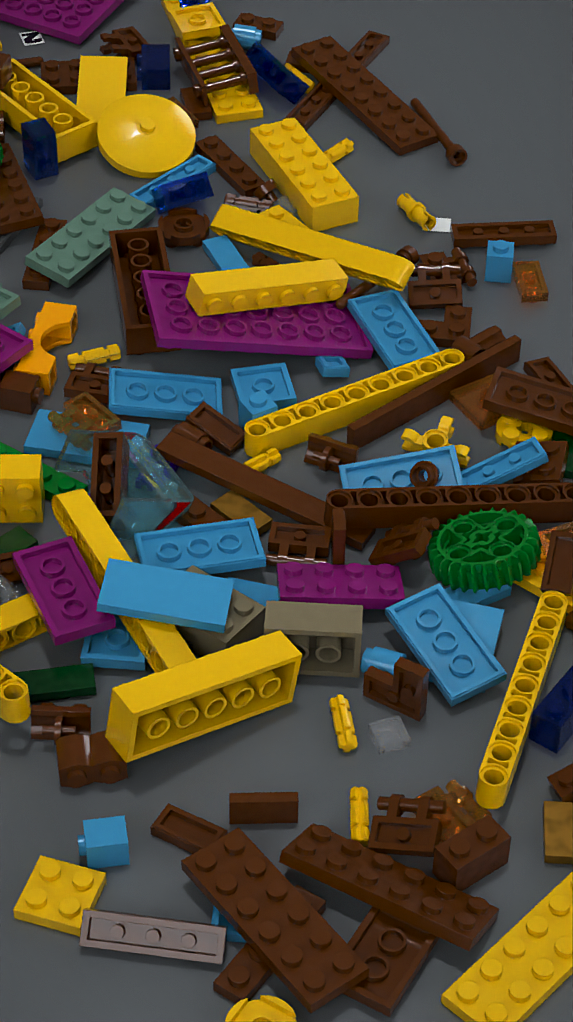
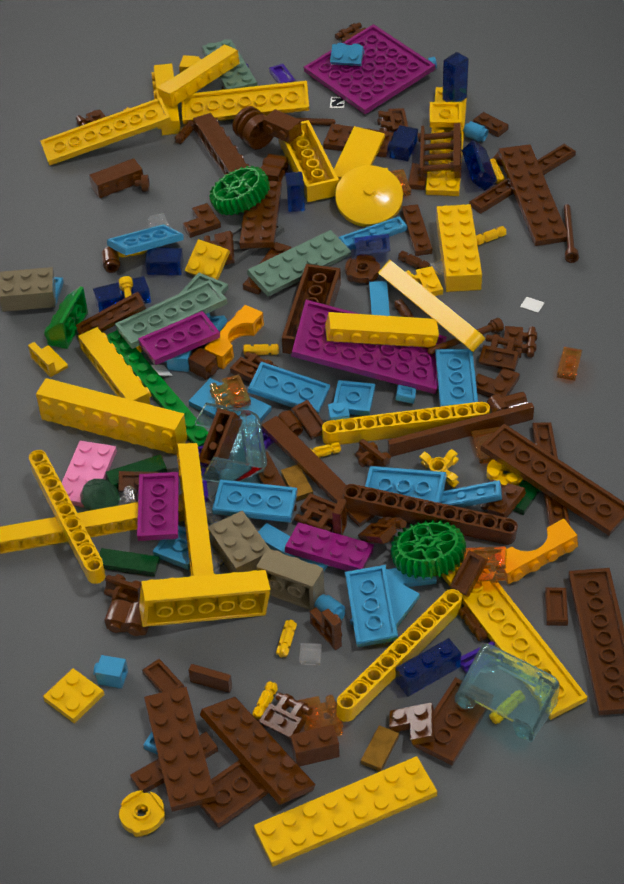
camera: 25 degrees right, 5 degrees up
(153, 936) = (110, 736): plate -> none
(165, 595) = (211, 527): dark azure tile -> none
(267, 190) = (428, 254): reddish brown tile -> none
(416, 212) = (521, 292): yellow pin -> none
(417, 474) = (414, 488): reddish brown plate -> none
(499, 261) = (554, 344): dark azure brick -> none
(519, 232) = (571, 323): reddish brown plate -> none

